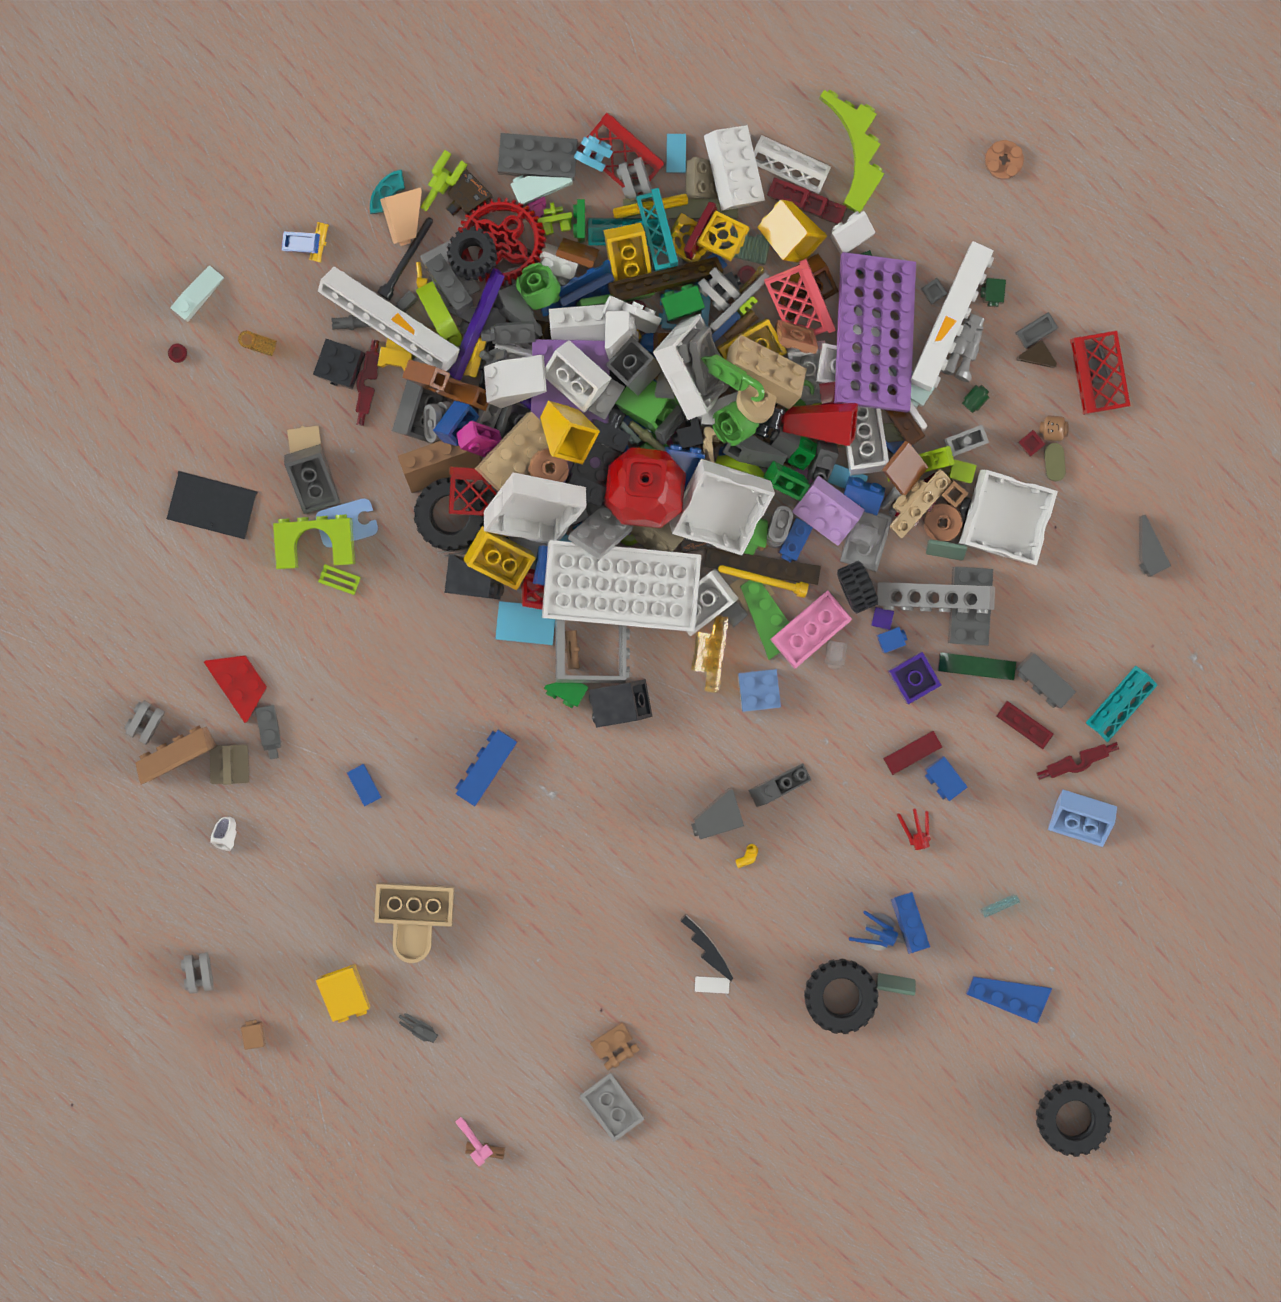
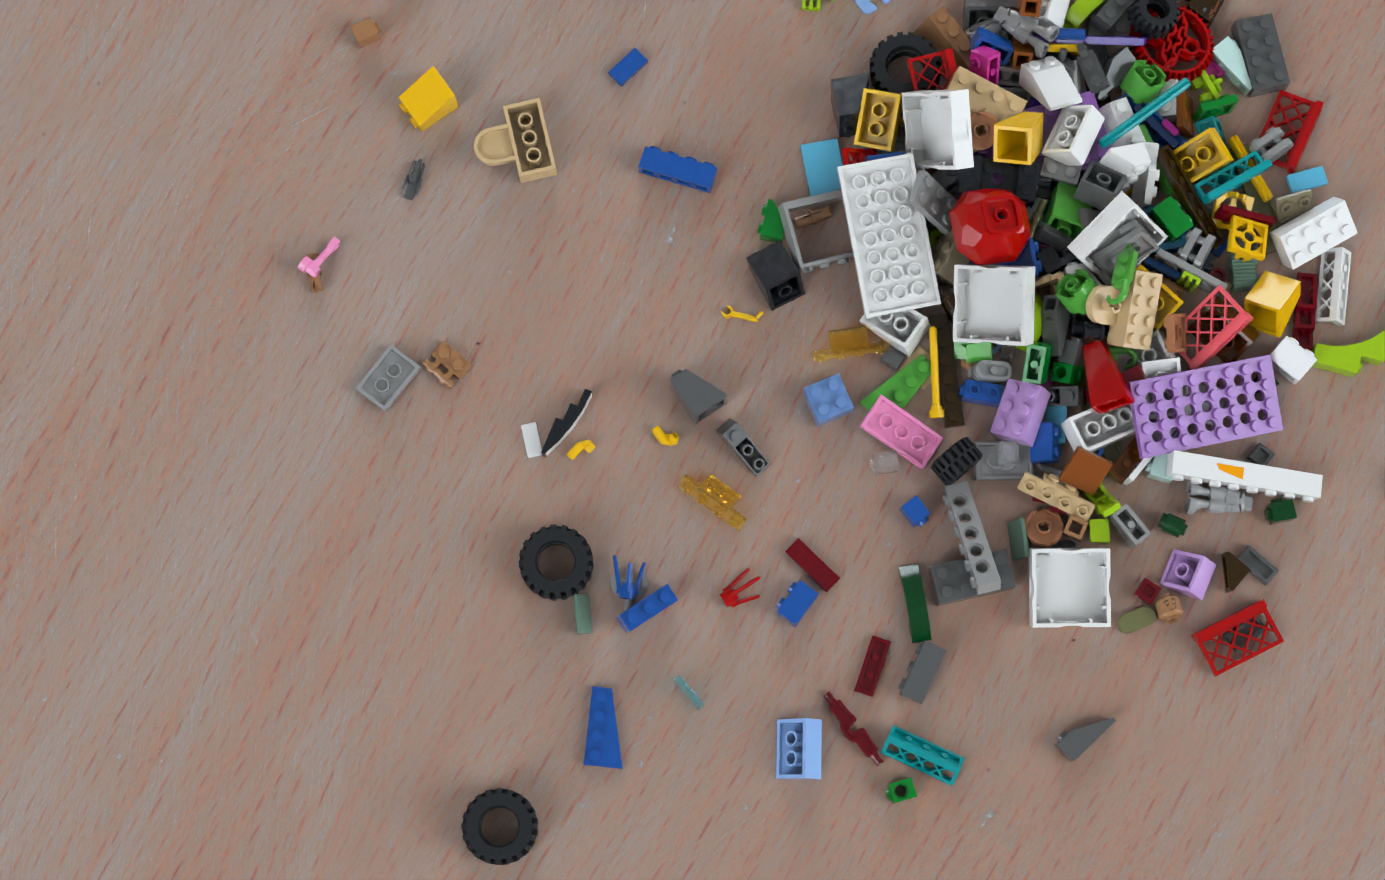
camera: 75 degrees right, 10 degrees down
(454, 389) = (1022, 28): none -> light grey piece
(467, 346) = (1071, 34): none -> blue axle
(573, 298) = (1144, 113): none -> teal axle
(593, 276) = (1170, 127): none -> magenta tile
(602, 150) = (1287, 109): medium azure brick -> none
(653, 741) = (741, 315): none -> yellow piece
(733, 941) = (580, 446): none -> yellow arm
(821, 824) = (715, 497): none -> clear yellow bracket
(882, 618) = (932, 498): dark purple tile -> none
(914, 678) = (885, 543): dark purple brick -> none
(1027, 399) = (1188, 574): none -> lavender slope
(1155, 727) = (909, 790): none -> green brick

